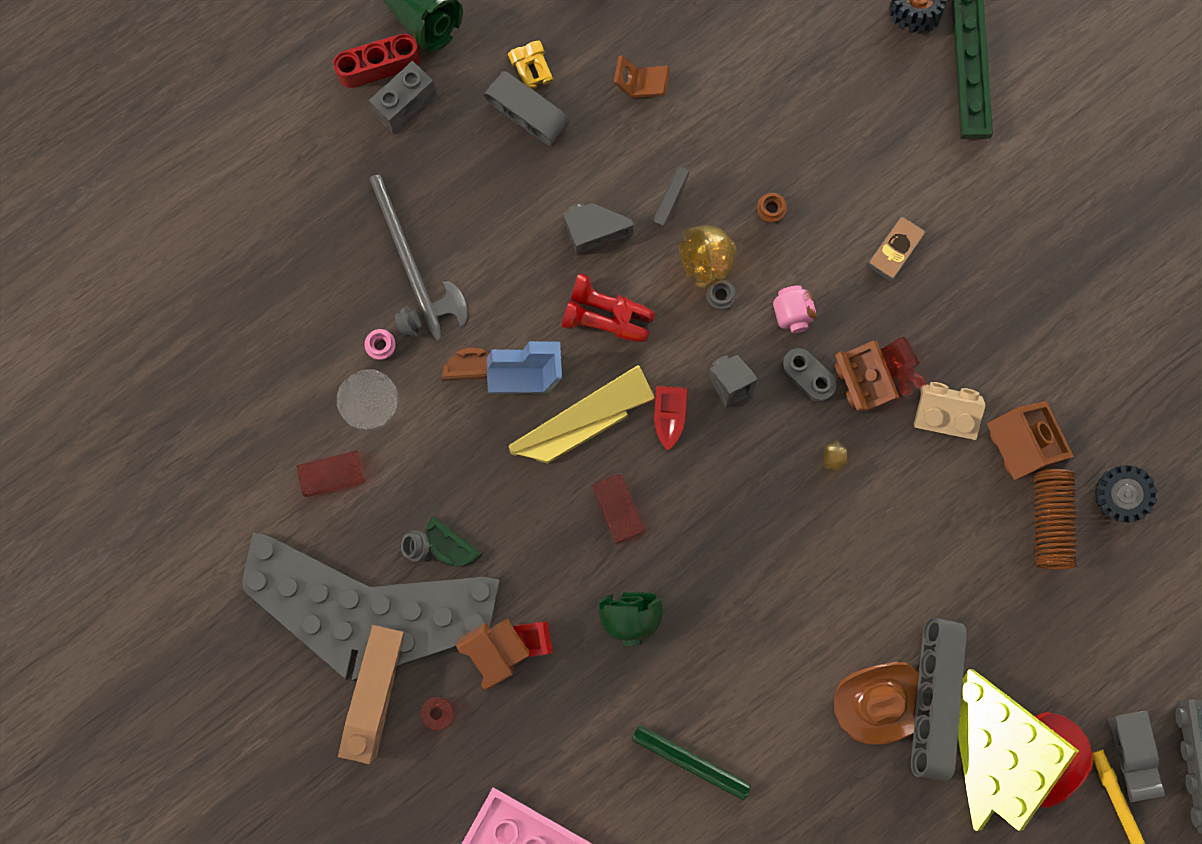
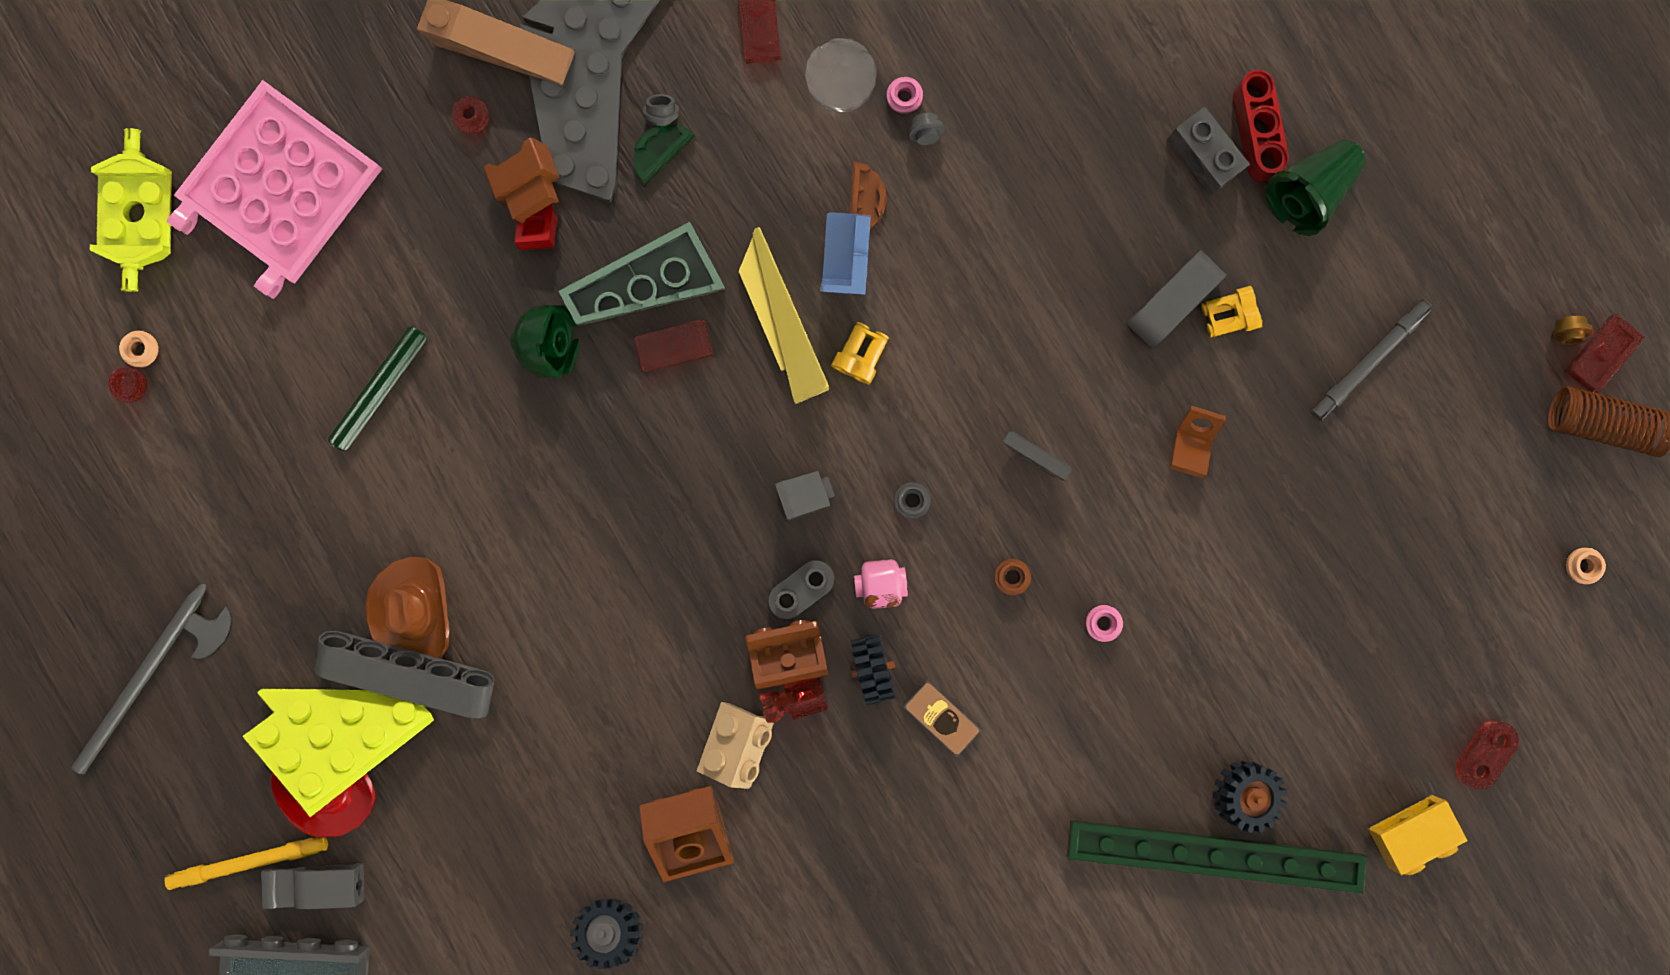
camera: 95 degrees right, 10 degrees up
(453, 301) = (947, 187): dark grey piece -> none
(564, 533) = (649, 277): none -> sand green wedge
(595, 226) = (1013, 359): dark grey slope -> none
(612, 359) = (854, 365): none -> yellow piece
(621, 307) = (908, 379): red piece -> none
(670, 413) = (776, 420): red plate -> none
(707, 254) = (961, 491): clear yellow cylinder -> none
(798, 124) = (1114, 628): none -> bright pink plate
(835, 456) = (699, 603): clear yellow plate -> none
(867, 303) = (872, 669): none -> black wheel
(1060, 523) = (546, 830): dark orange piece -> none

